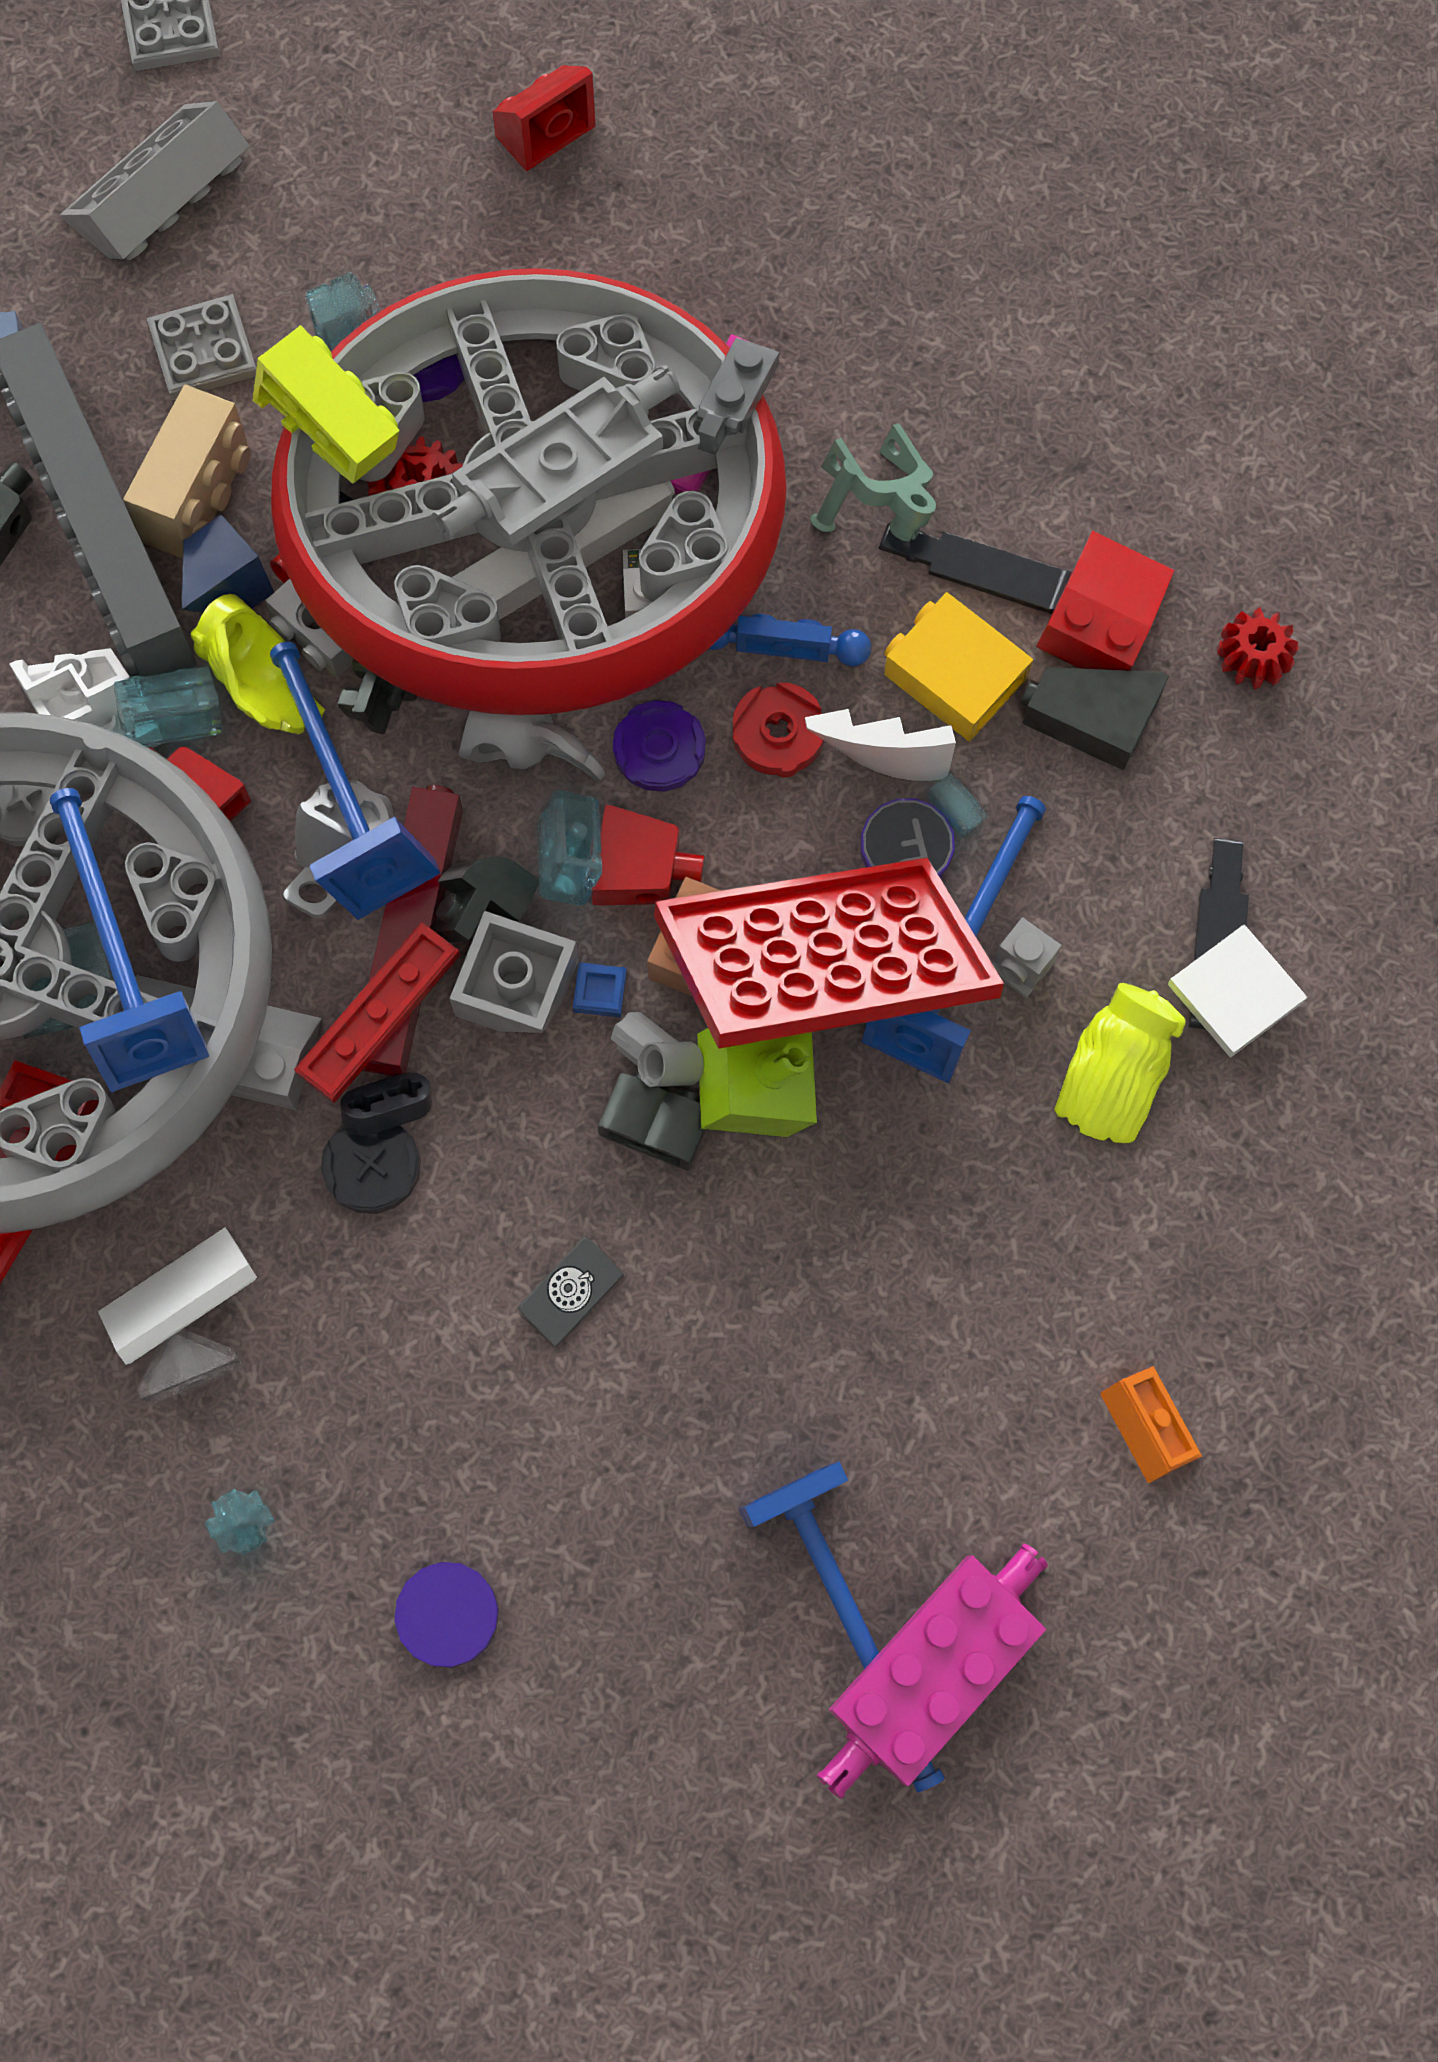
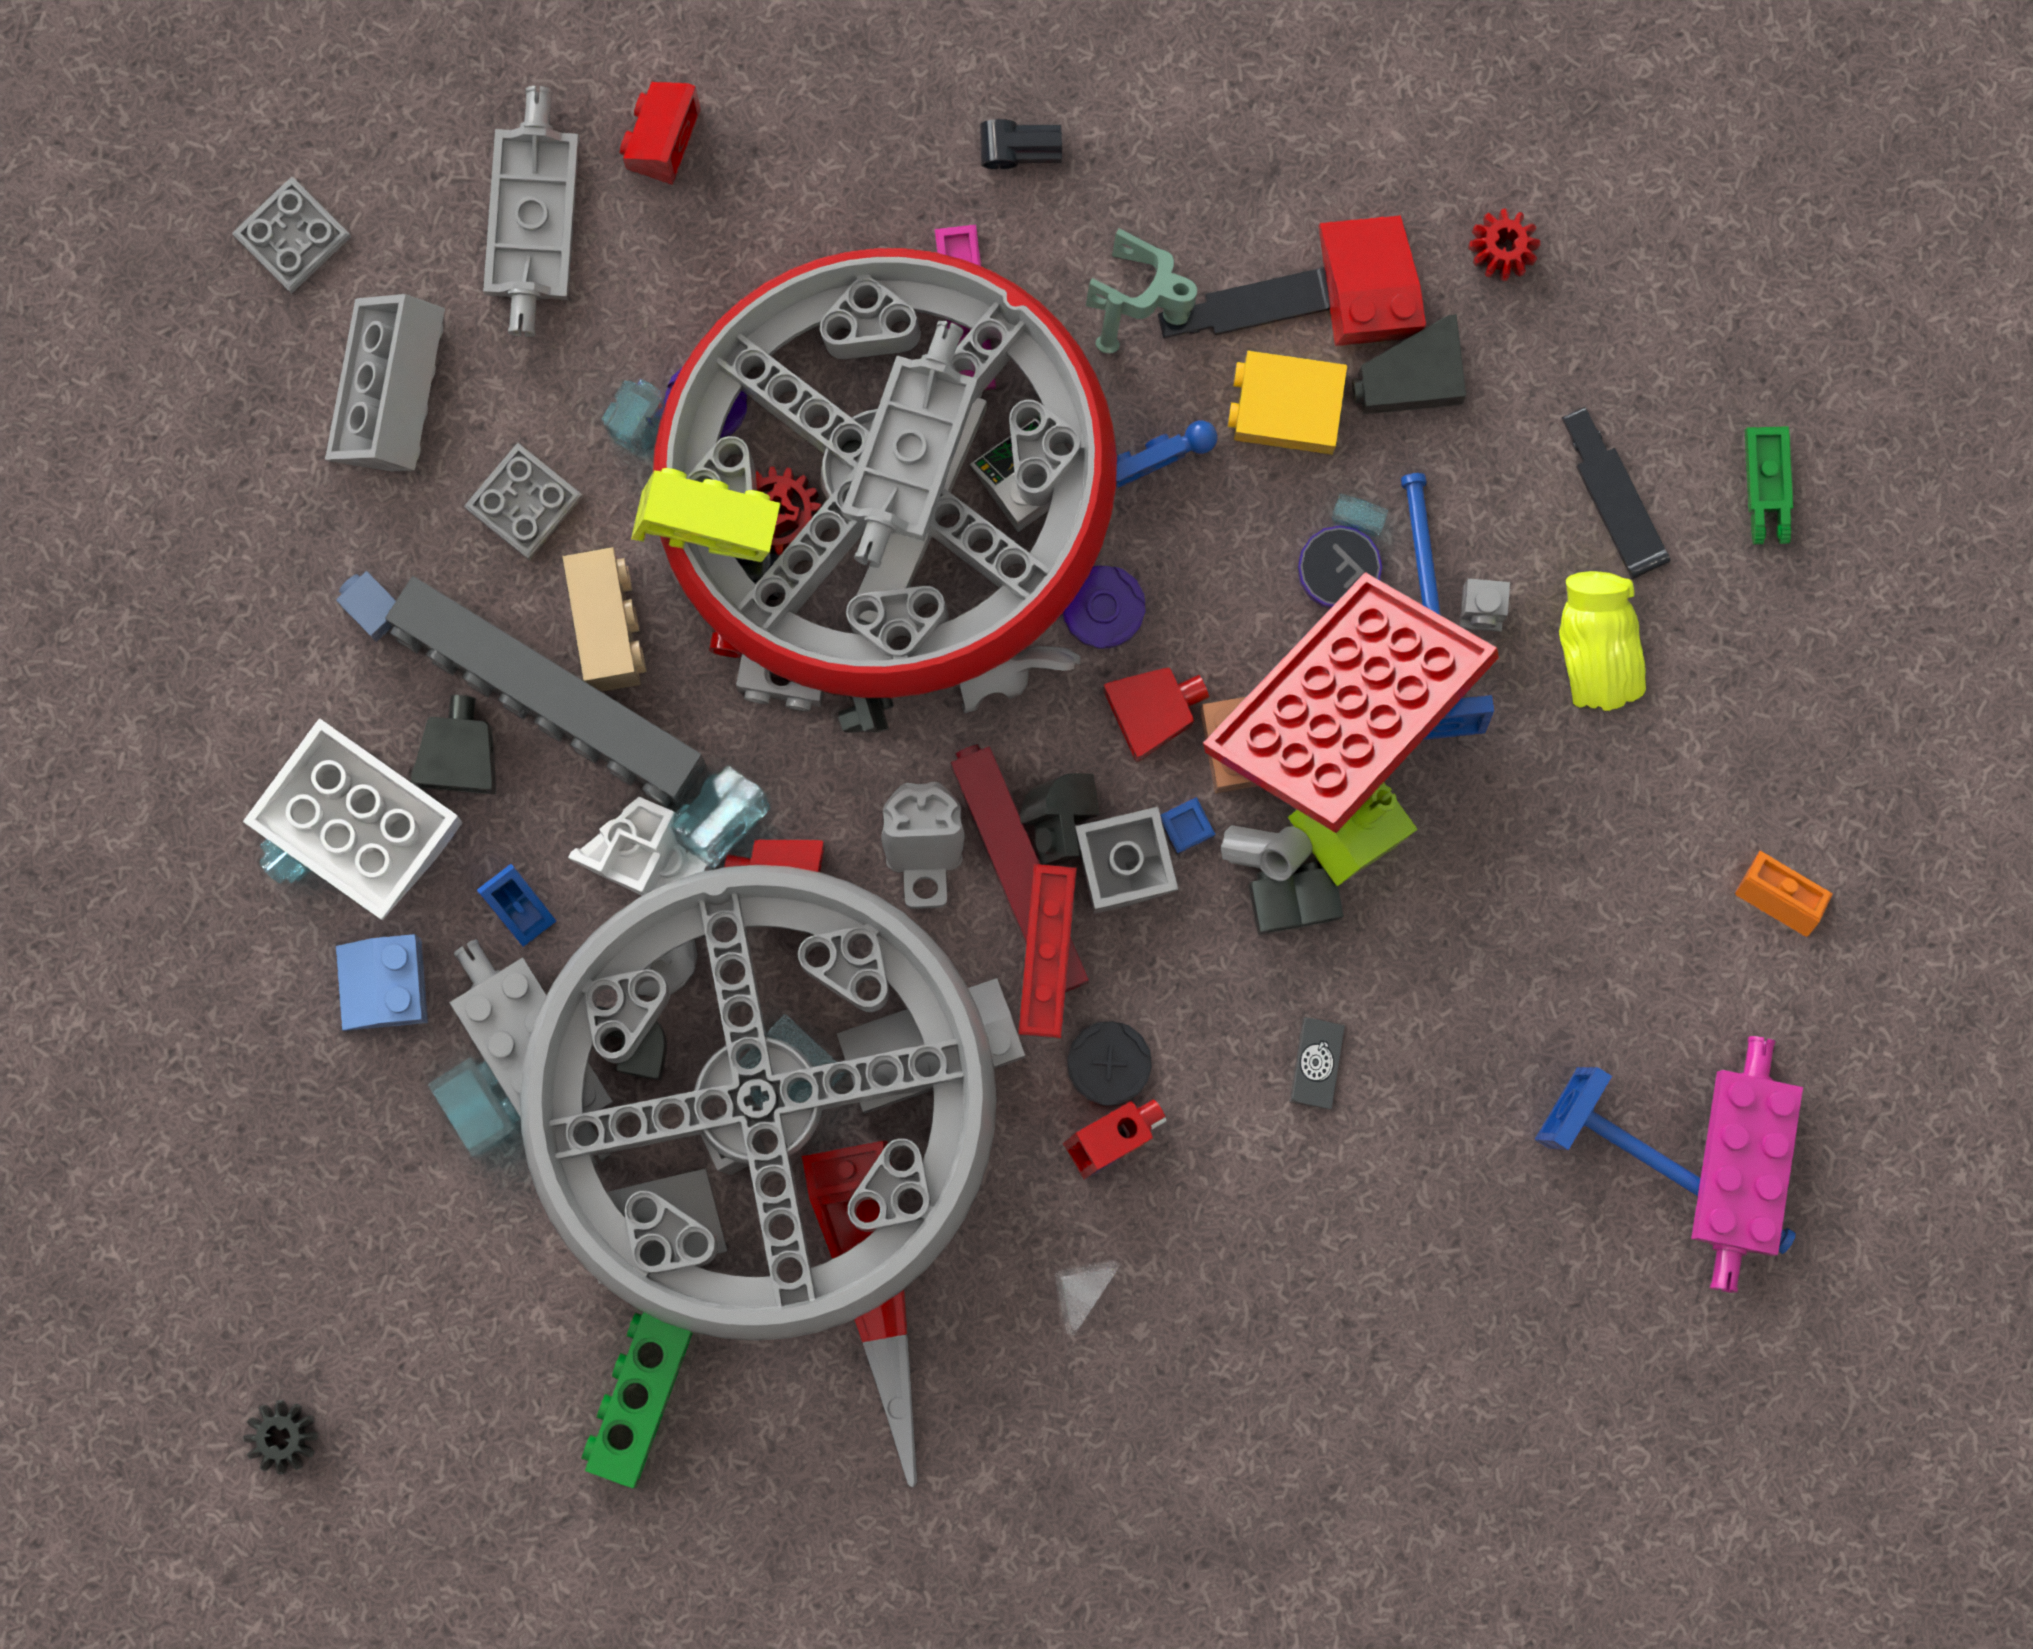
camera: 35 degrees left, 10 degrees up
(143, 1037) = (933, 1089): blue tile -> none
(176, 1296) = (1044, 1248): white tile -> none
(221, 564) = (682, 682): dark blue slope -> none
(238, 652) = (762, 742): neon yellow hair -> none
(239, 1521) = (1198, 1375): clear light blue gear -> none
(299, 1233) = (1101, 1143): none -> red torso
(377, 861) = (978, 846): blue tile -> none
(384, 118) = (531, 213): none -> light grey plate
(385, 1103) = (1092, 1012): black beam -> none
(446, 1614) = (1383, 1344): dark purple tile -> none
(569, 848) = (1100, 735): clear light blue brick -> none
(735, 392) = (1000, 302): dark grey hinge -> none
(770, 705) = (1203, 521): red plate -> none
(849, 301) = (1009, 144): none -> black piece
(886, 748) = (1278, 505): white slope -> none
(1237, 990) = (1653, 531): white tile -> none
(1385, 1013) = (1769, 480): none -> green hinge

